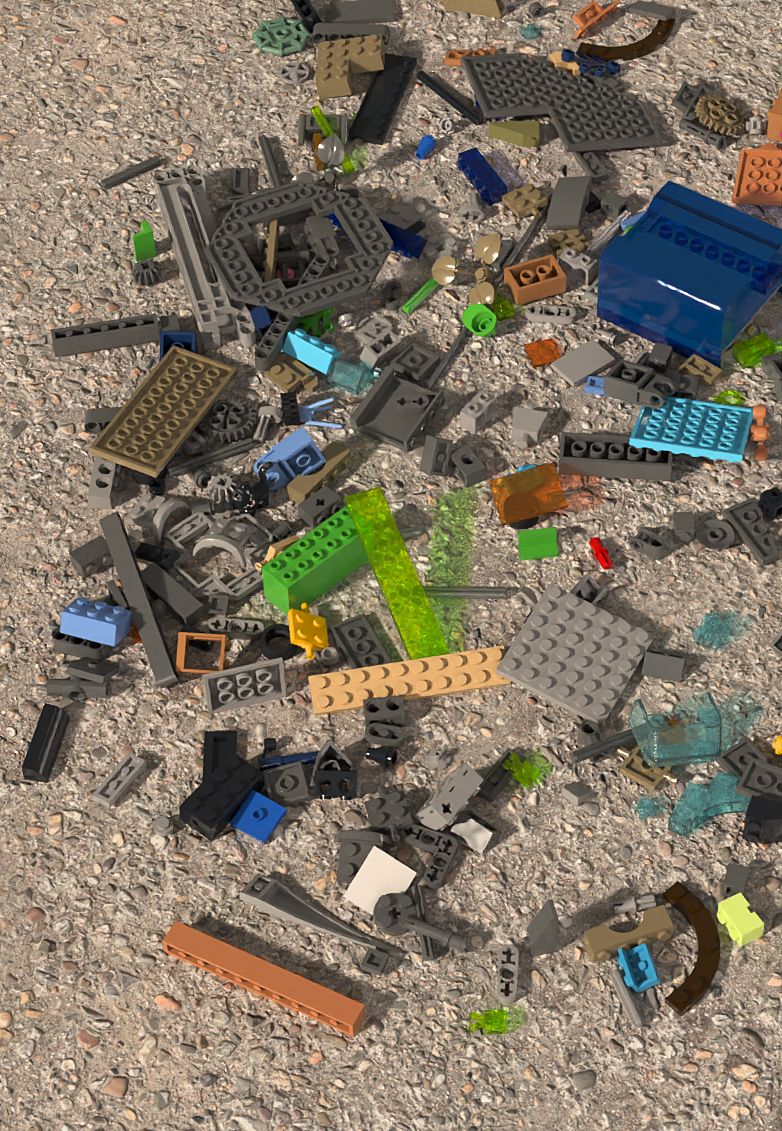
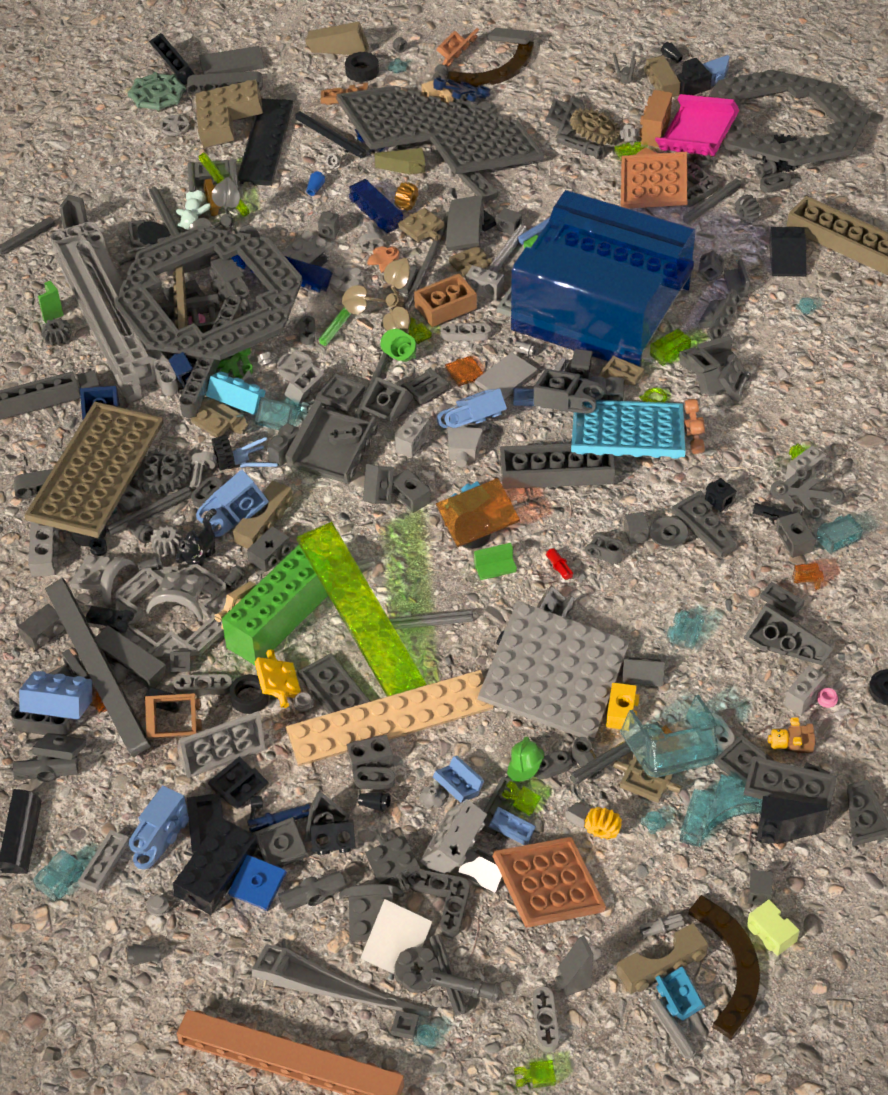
camera: 10 degrees left, 0 degrees up
(75, 787) = (58, 875): none -> clear light blue brick
(141, 867) = (141, 954): none -> dark grey cone
(174, 753) = (159, 826): none -> medium blue brick
(179, 153) = (73, 211): none -> dark grey panel
(254, 180) = (151, 231): none -> black tile
(255, 724) = (238, 783): none -> black slope
(267, 443) = (205, 490): none -> dark grey plate
(300, 160) = (194, 207): none -> light aqua piece
(308, 831) = (312, 891): none -> dark grey piece
(347, 405) = (280, 444): none -> dark grey brick
(393, 969) = (428, 1030): none -> clear light blue plate
(431, 192) = (328, 225): none -> dark grey brick
(459, 374) = (386, 400): none -> dark grey slope
(465, 746) = (459, 780): none -> medium blue bracket
(481, 228) = (383, 256): none -> nougat plate
(493, 21) = (362, 74): none -> black tyre
(500, 364) = (427, 389): none -> dark grey plate
(508, 795) = (512, 826): none -> medium blue plate
(514, 169) = (406, 196): none -> pearl gold gear
(532, 735) = (525, 760): none -> bright green piece
(533, 850) = (548, 882): none -> nougat plate
(542, 392) = (473, 409): none -> medium blue brick
(557, 744) = (553, 765): none -> dark grey plate
(572, 43) = (440, 71): none -> dark grey bush
(595, 802) = (603, 823): none -> yellow gear
(635, 688) = (622, 699): none -> yellow brick
(729, 733) = (723, 733): none -> light grey plate
(750, 142) = (627, 149): none -> clear neon green plate
(765, 61) = (626, 73): none -> dark grey plant

